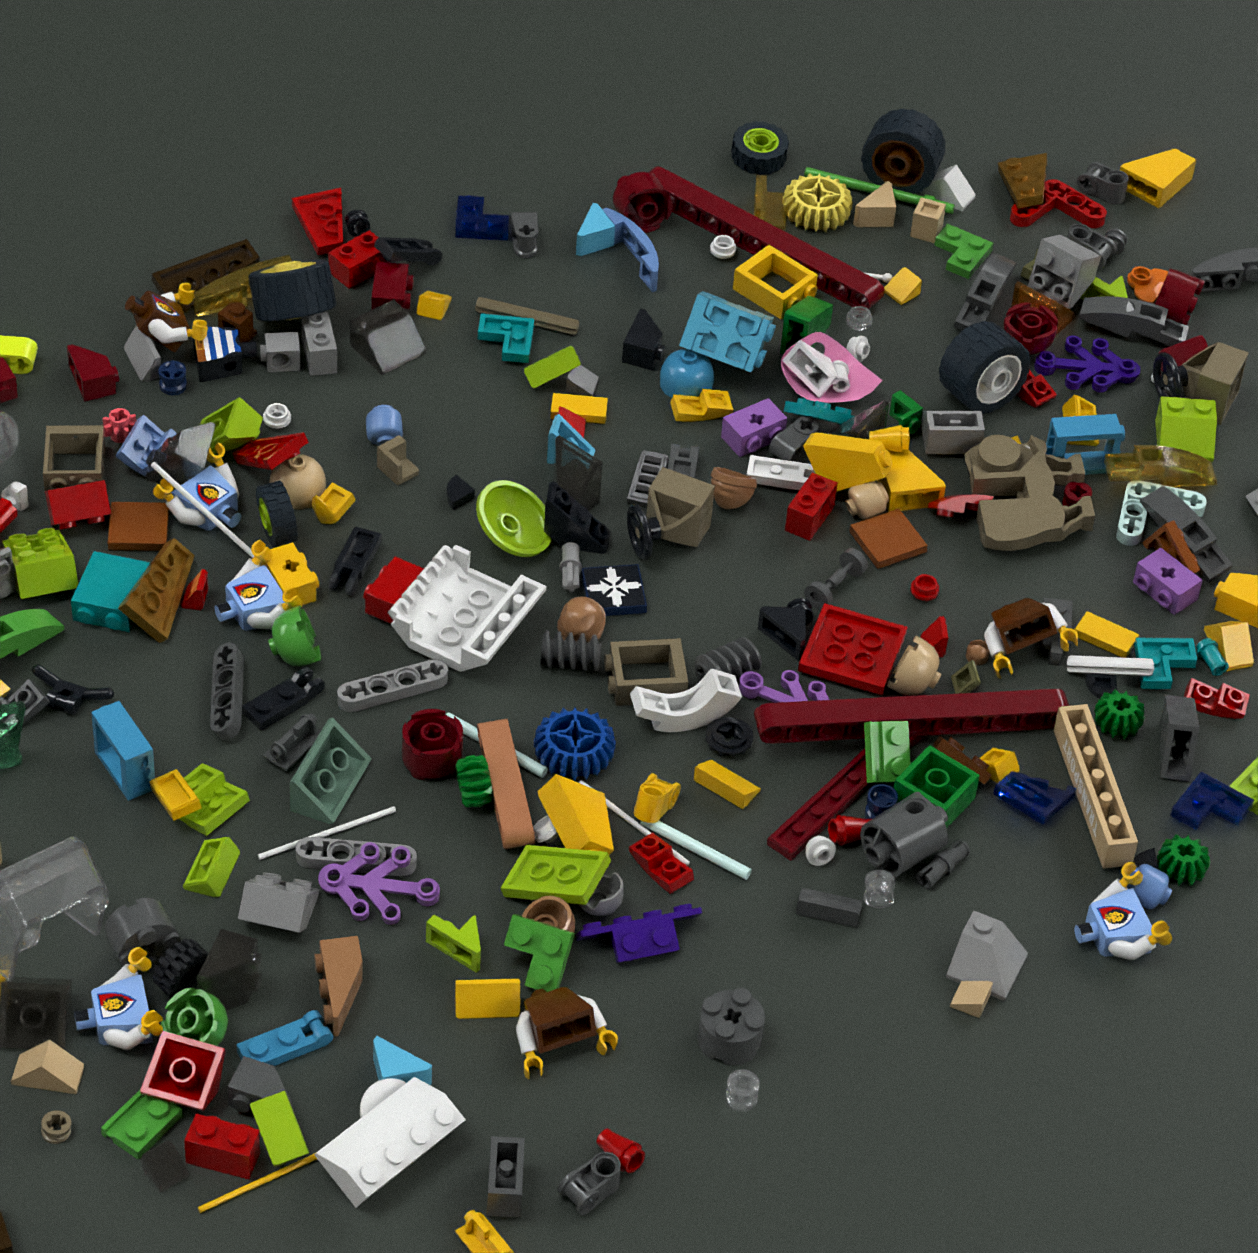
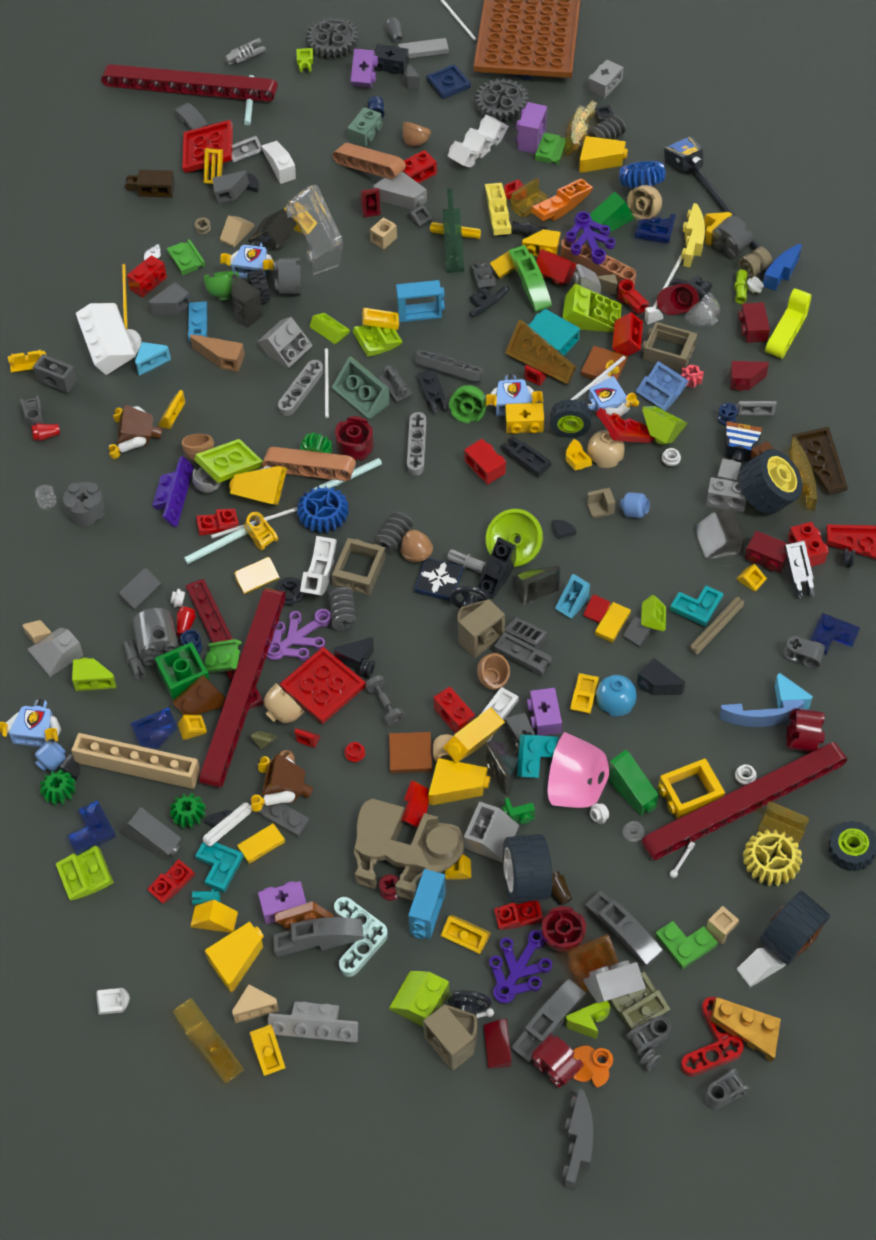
camera: 120 degrees right, 10 degrees up
(164, 318) = (775, 413): torso -> none
(182, 455) = (637, 381): clear smoke slope -> none
(184, 1071) = (193, 269): red slope -> none
(279, 1128) = (139, 294): lime slope -> none
(374, 883) = (287, 373): medium lavender plant -> none
(460, 611) = (451, 487): white slope -> none
(460, 944) = (212, 408): lime slope -> none
(547, 945) = (175, 436): bright green plate -> none
(727, 332) = (630, 715): medium azure piece -> none
(811, 367) = (580, 764): white slope -> none
(841, 384) = (574, 786): white pin -> none
(870, 187) = (750, 942): bright green bar -> none
(877, 208) = (752, 900): tan slope -> none
(879, 889) = (129, 613): clear wheel -> none
(893, 438) = (480, 773): yellow cone -> none
(903, 286) = (657, 878): yellow slope -> none
(1004, 895) = (91, 675): none -> lime slope
(1159, 176) = (717, 1140): yellow slope -> none
(1162, 463) = (385, 954): clear yellow slope -> none

